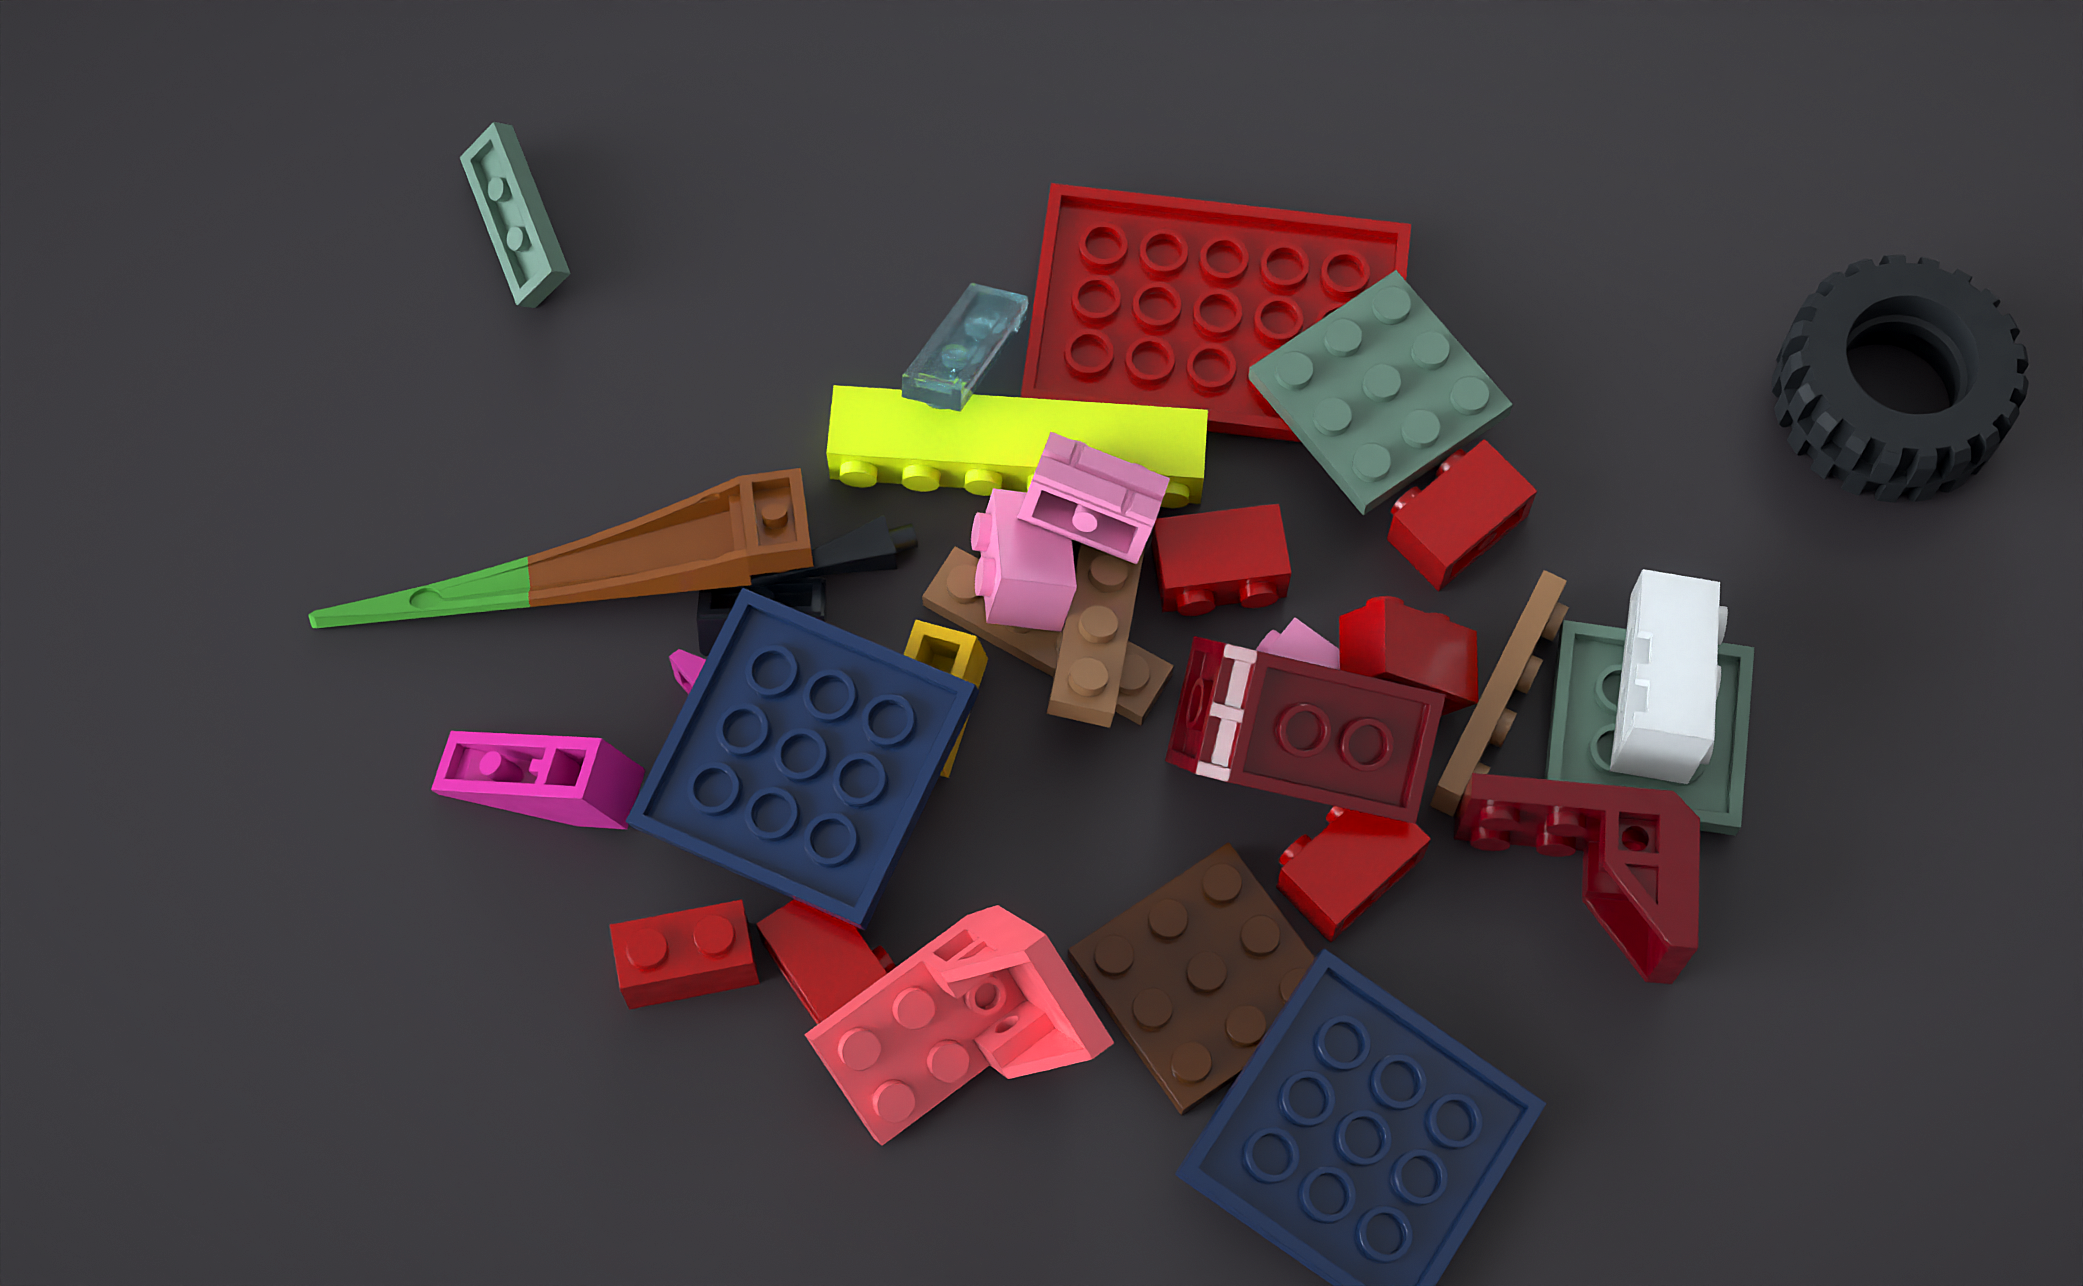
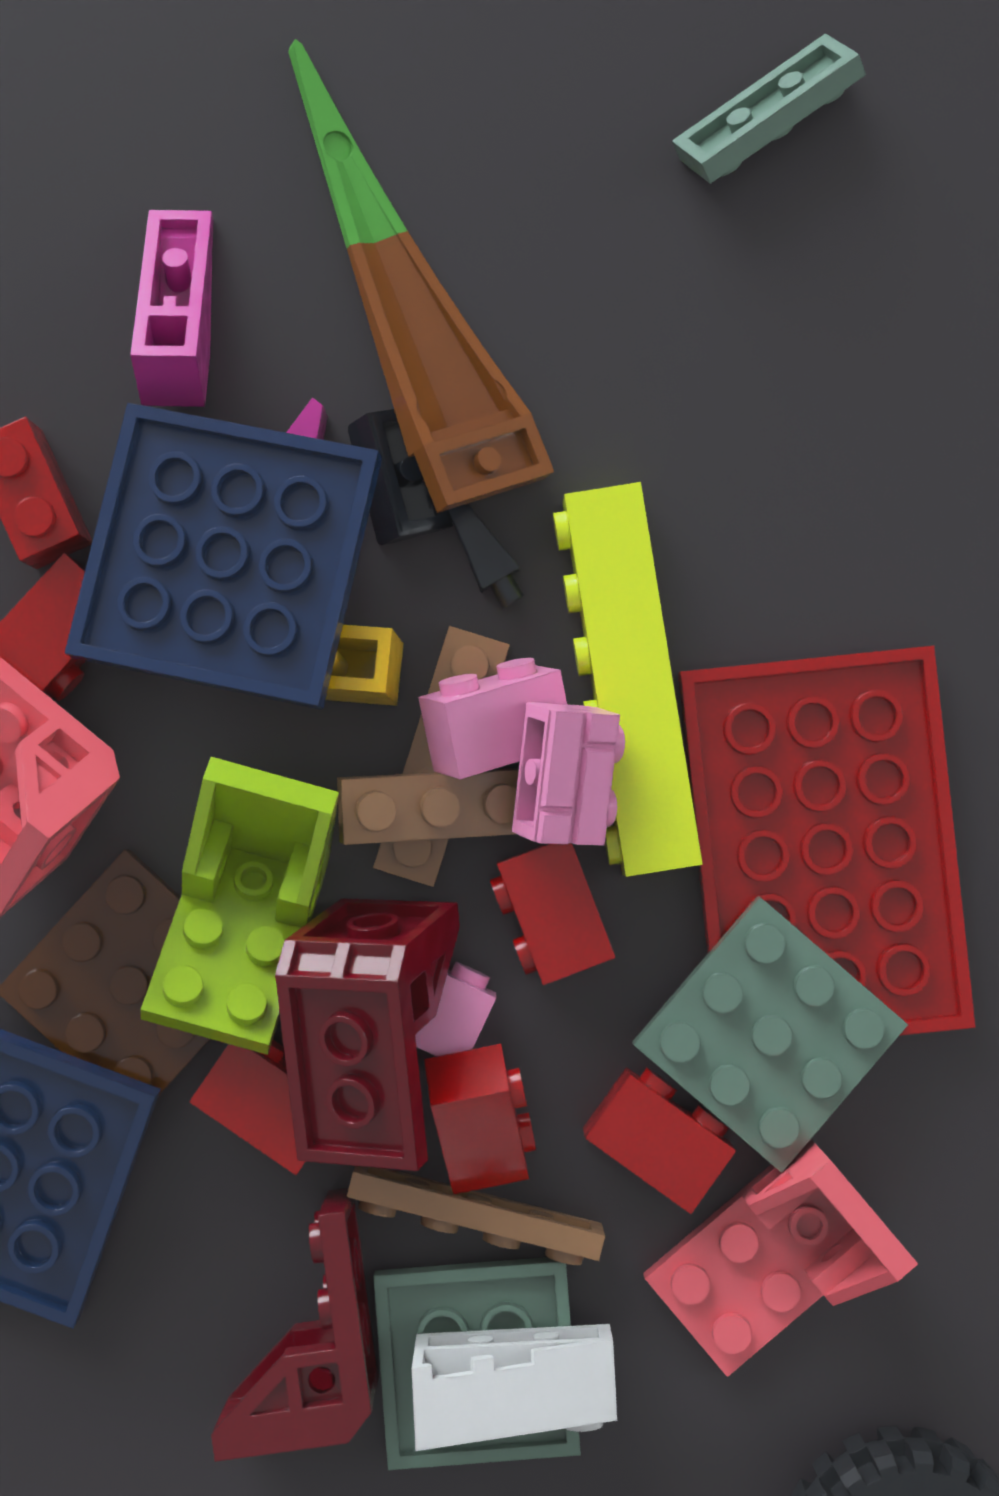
camera: 75 degrees right, 20 degrees up
(964, 347) = (715, 603): clear light blue plate -> none
(1137, 829) = (245, 888): none -> lime bracket
(1580, 428) = (775, 1256): none -> coral bracket

